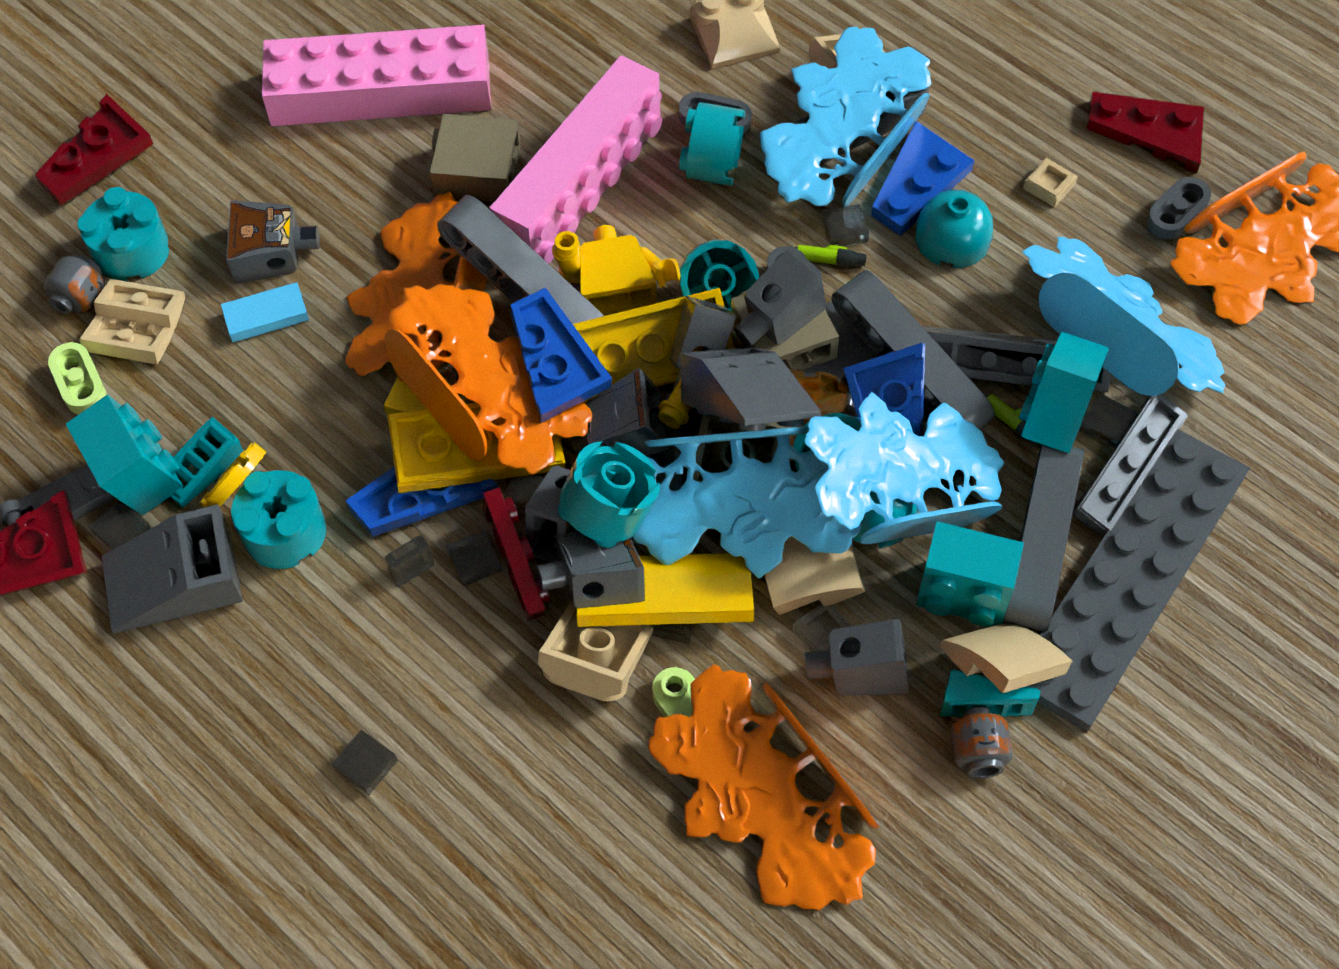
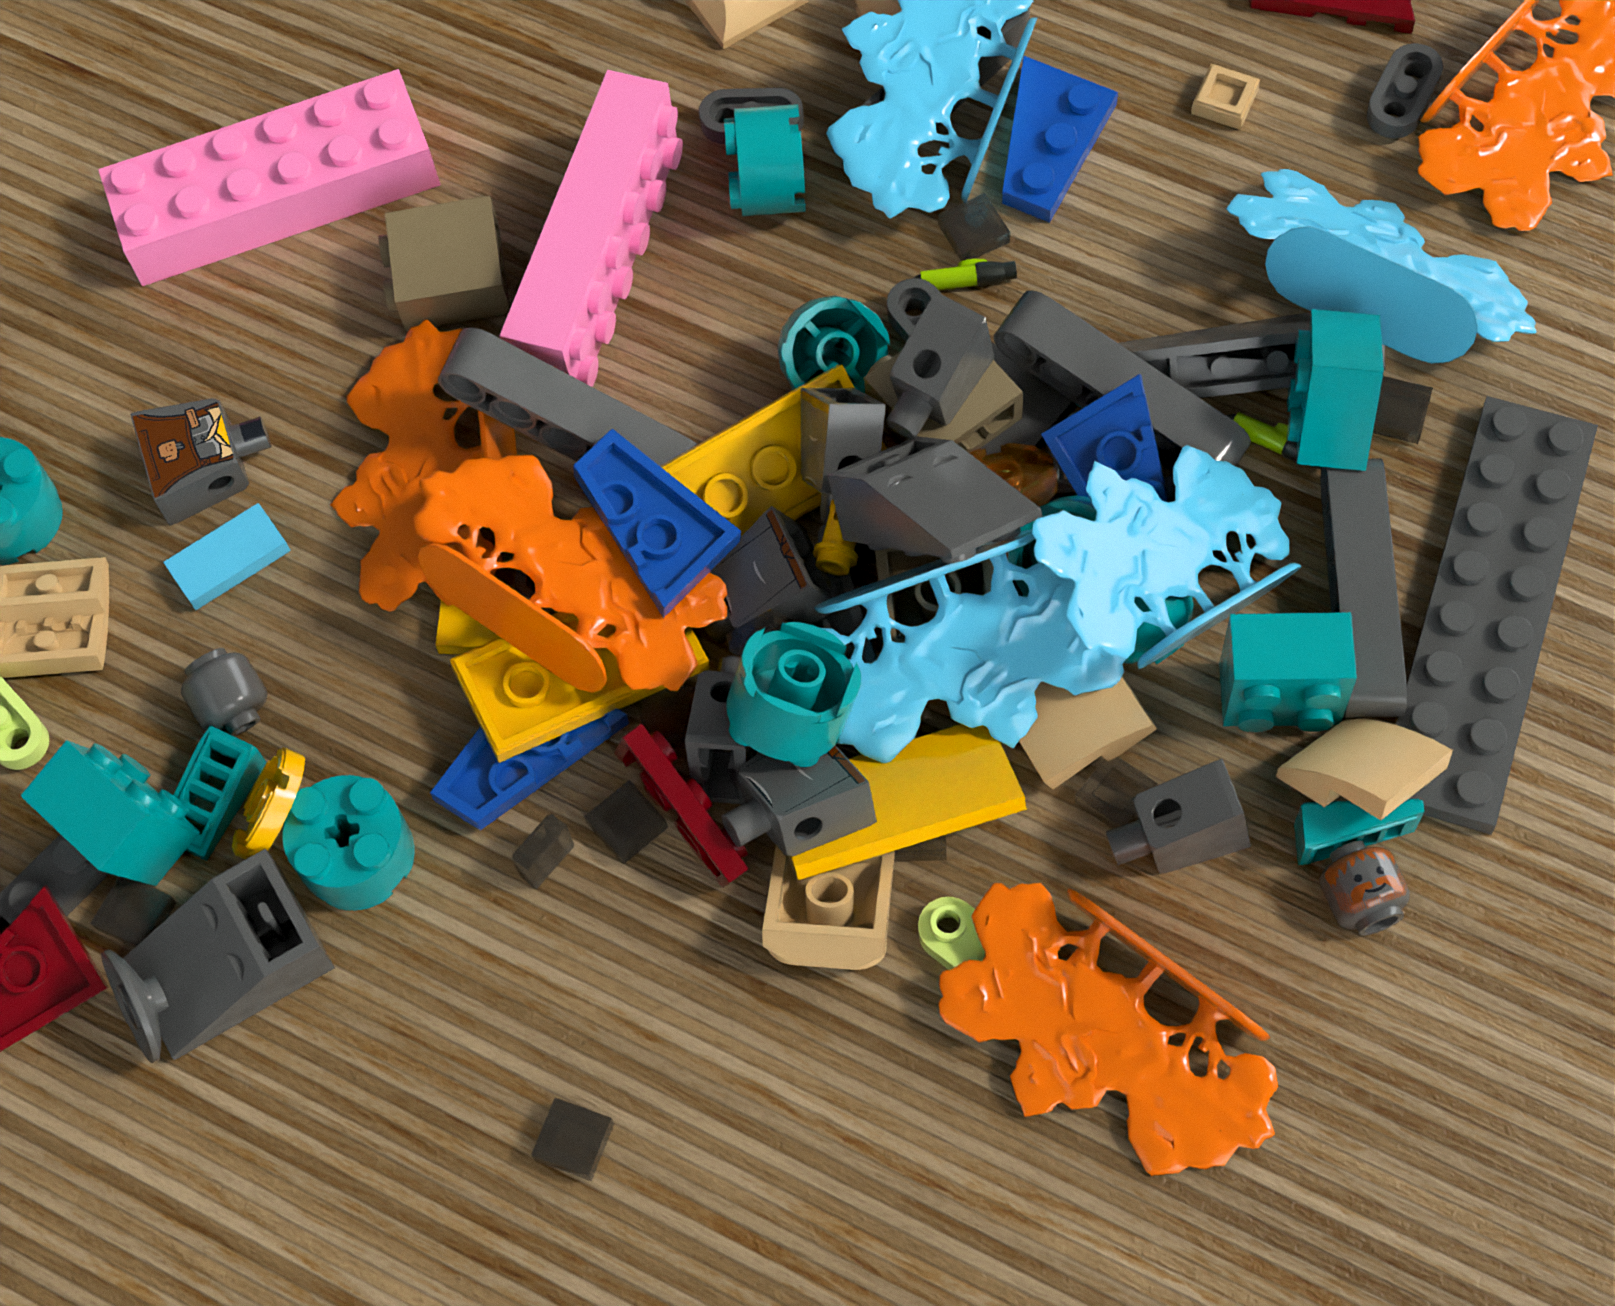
camera: 10 degrees left, 5 degrees up
(102, 585) = (138, 1001): none -> dark grey dish
(230, 398) = (224, 691): none -> dark grey head
(613, 269) = (687, 372): yellow torso -> none
(954, 228) = (1120, 196): teal cylinder -> none
(1129, 464) = (1442, 461): tile -> none

